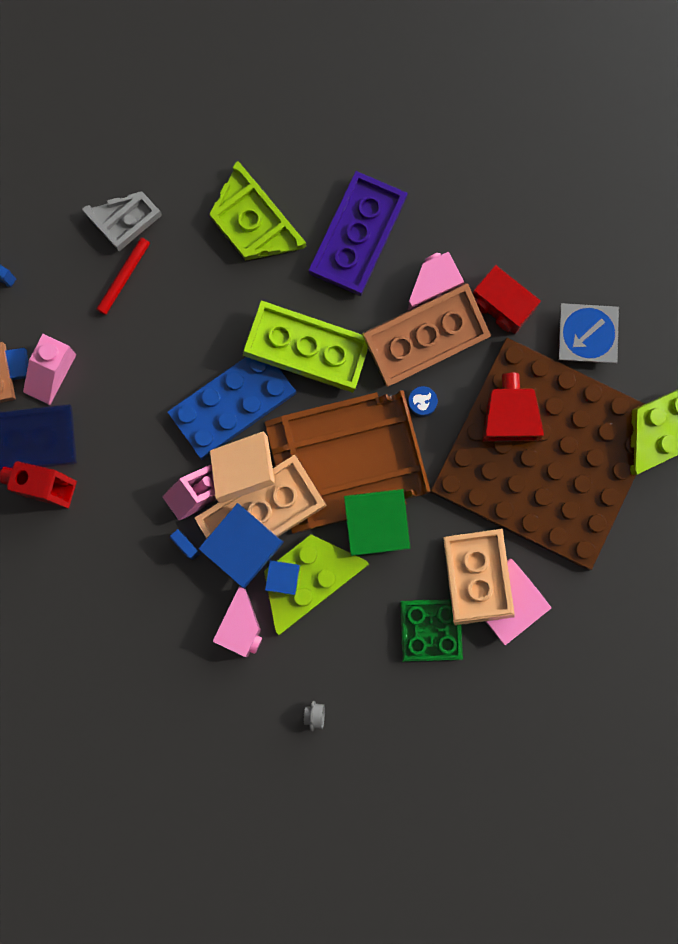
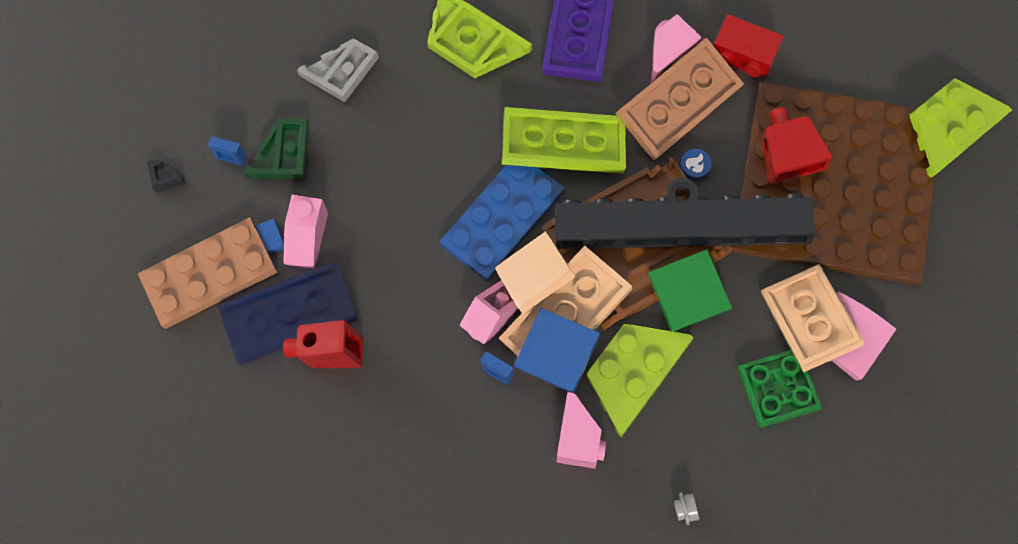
camera: 10 degrees left, 10 degrees down
(49, 285) = (282, 152): none -> dark green wing
(123, 276) = (355, 124): red piece -> none
(282, 577) = (609, 372): blue tile -> none
(389, 458) = (686, 222): none -> black hinge
(588, 333) = (839, 56): piece -> none

